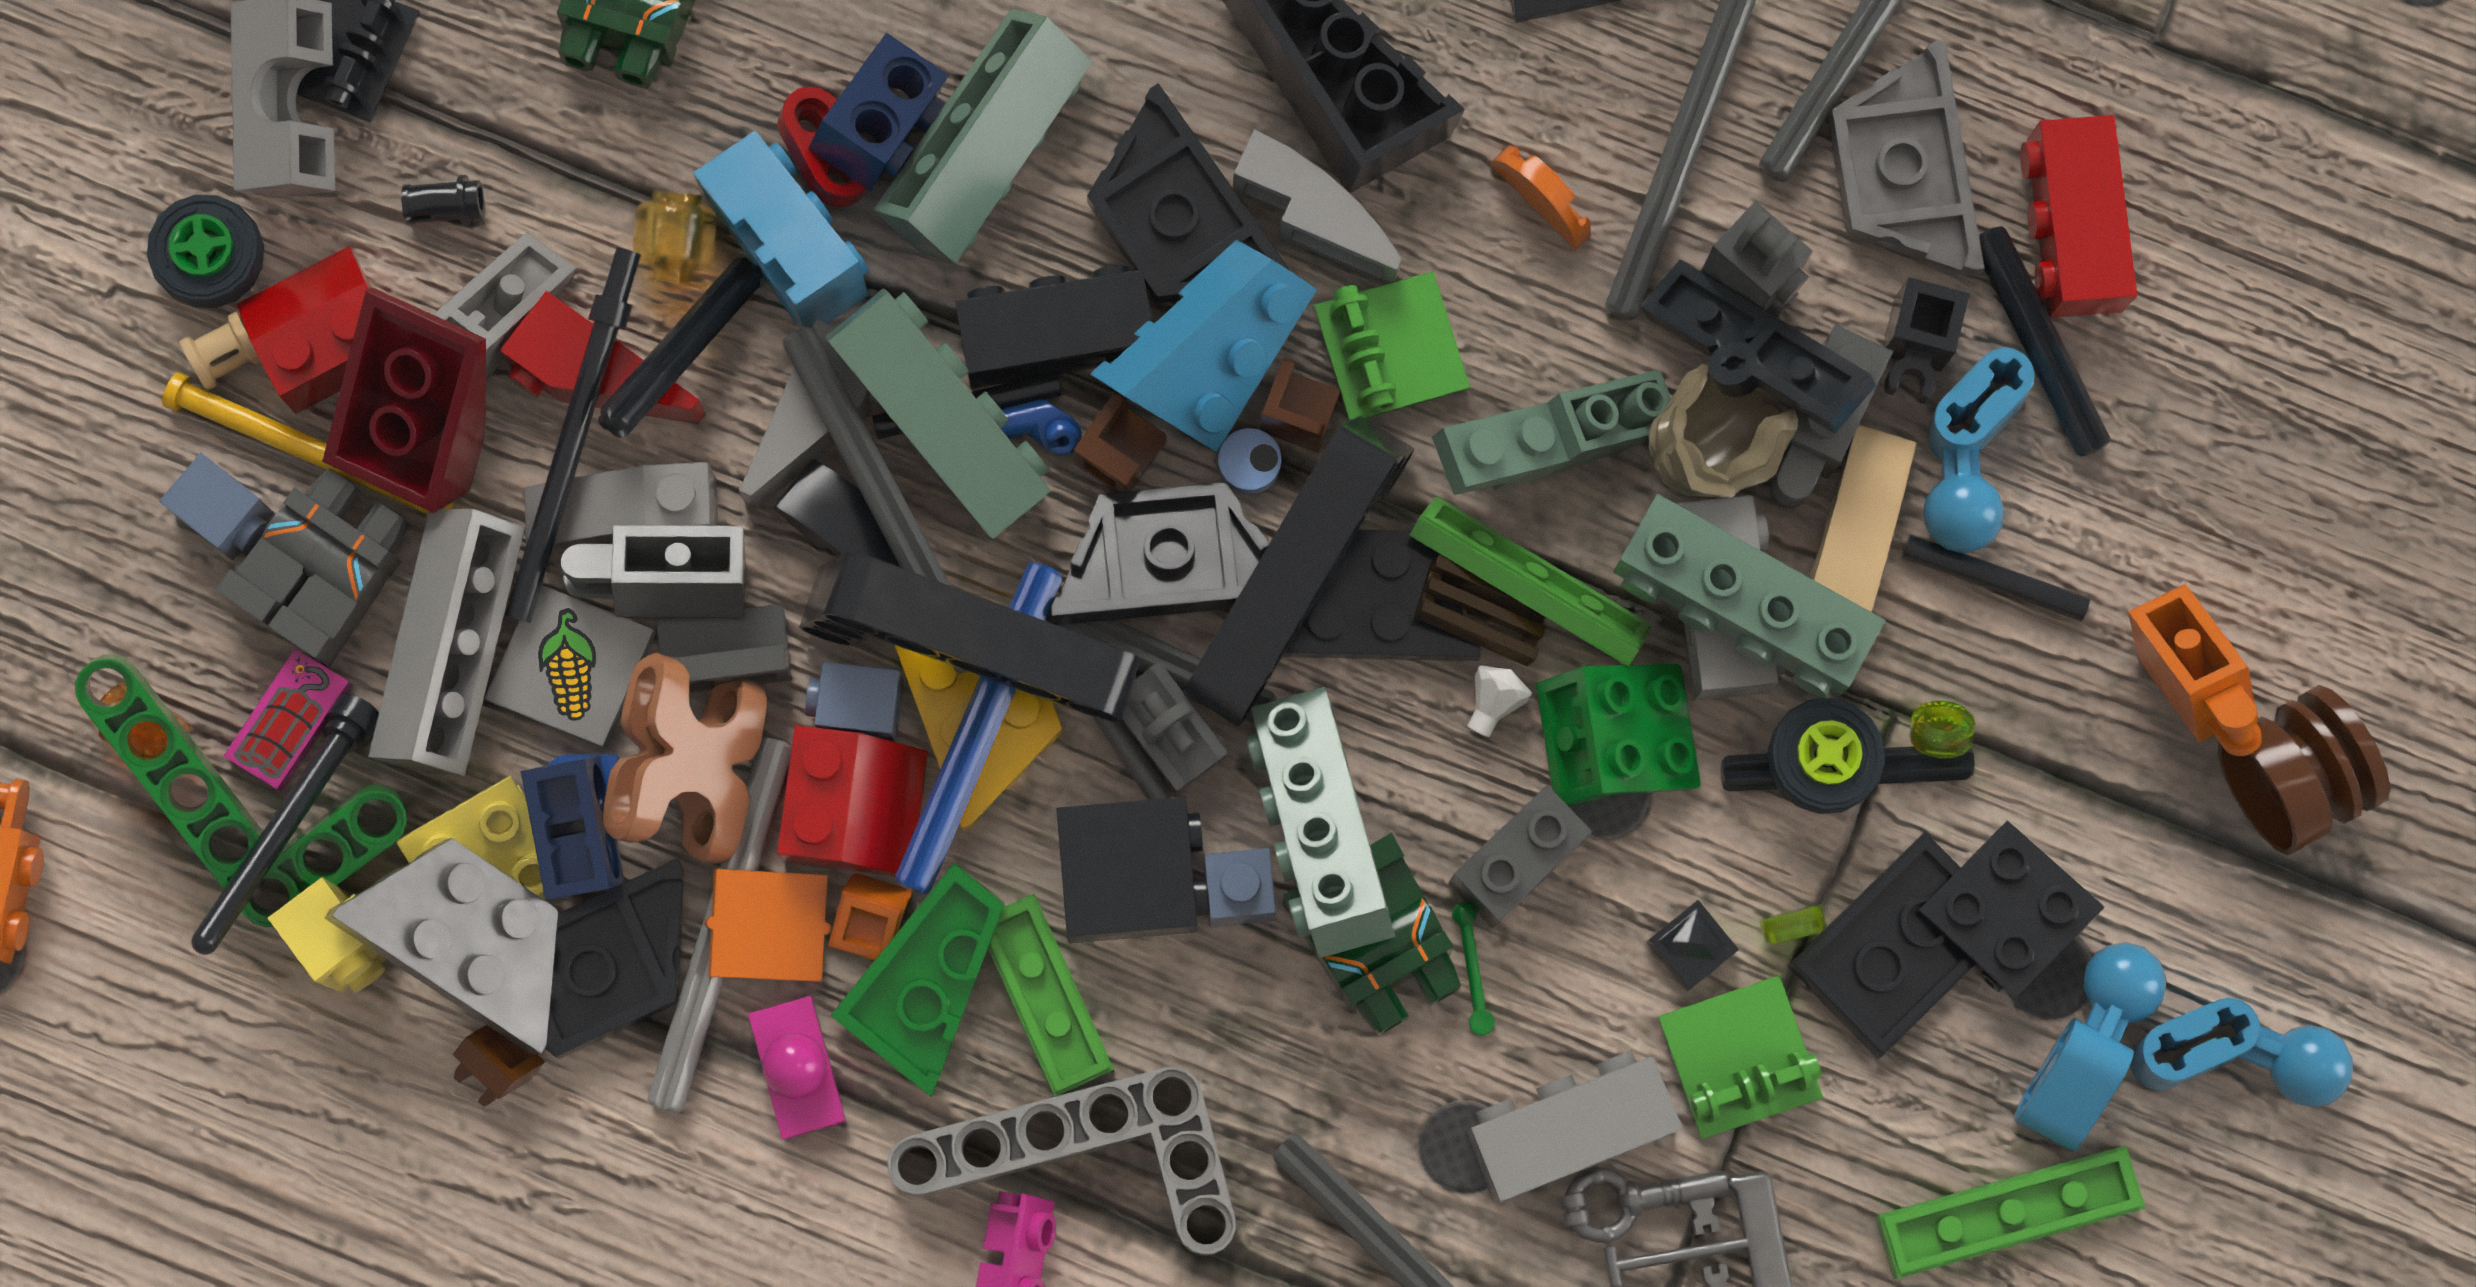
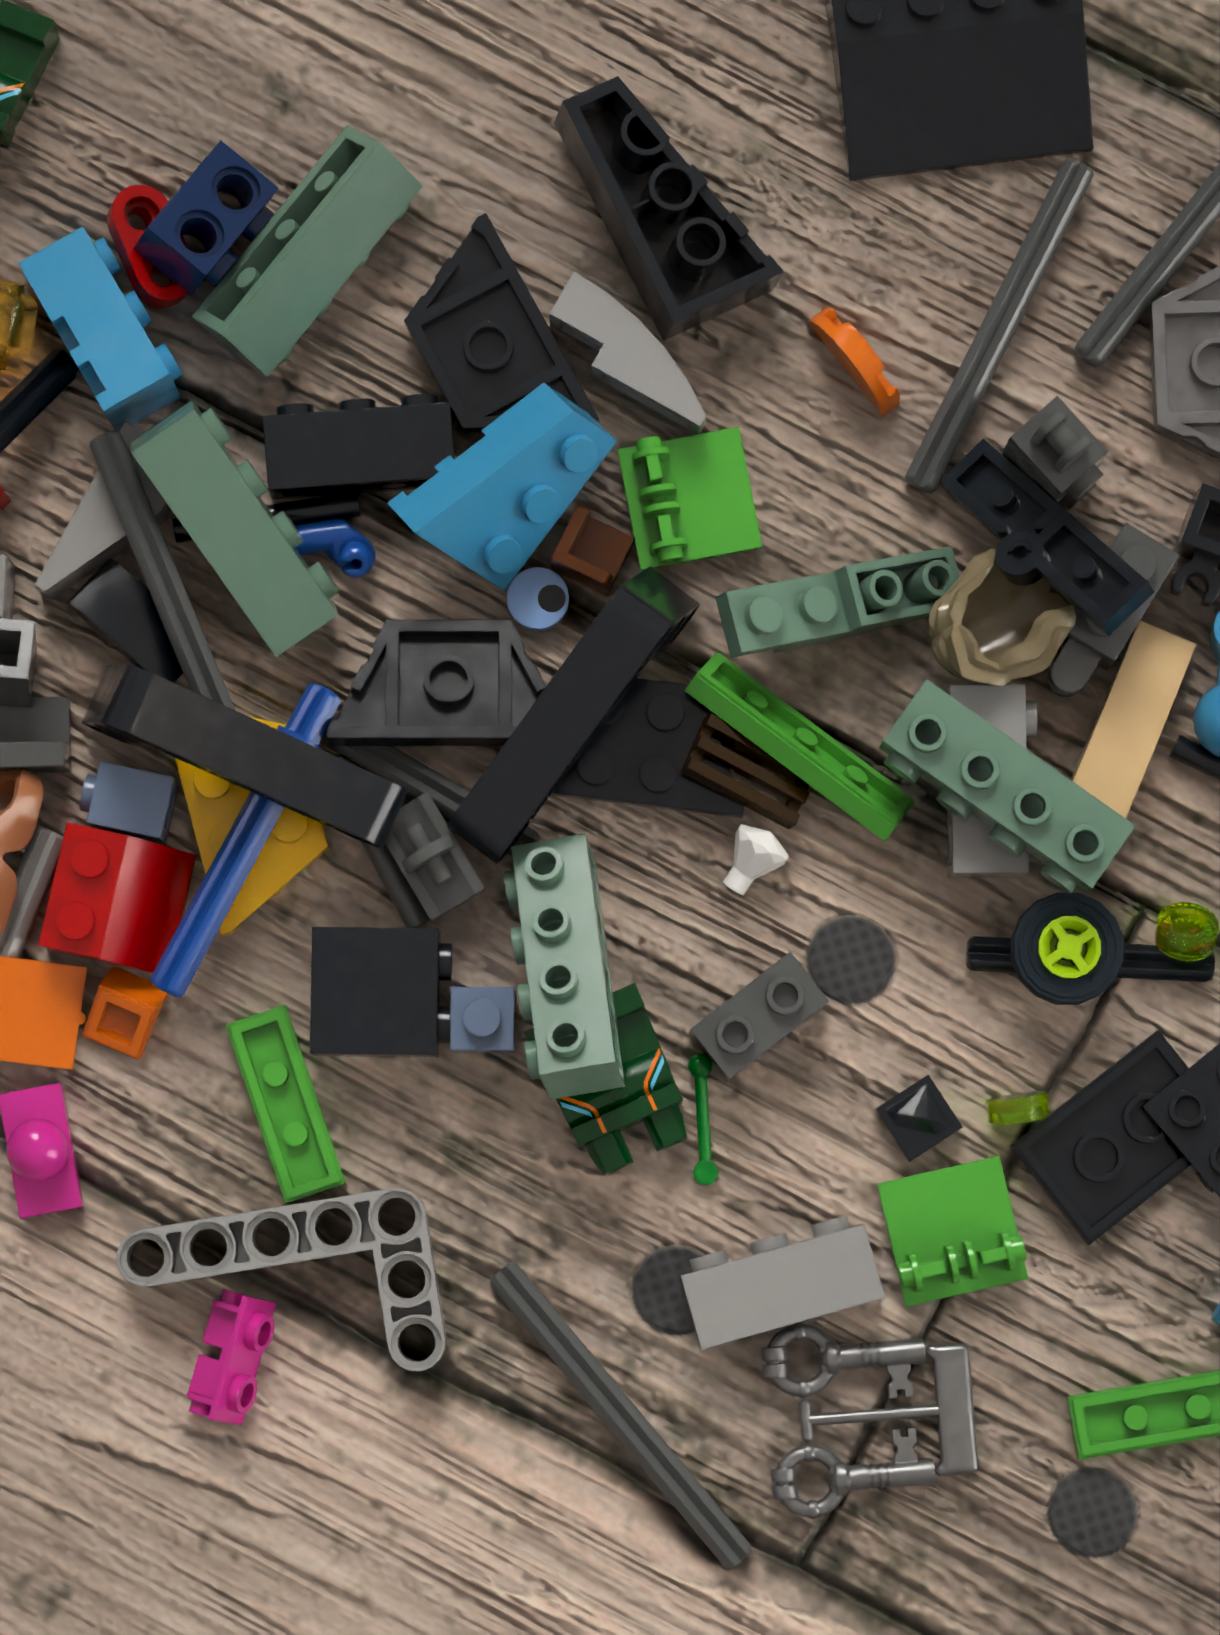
camera: 10 degrees right, 5 degrees up
(923, 979) = (169, 1078): green wing -> none
(1118, 446) = (411, 574): reddish brown panel -> none
(1617, 732) = (869, 903): green bracket -> none

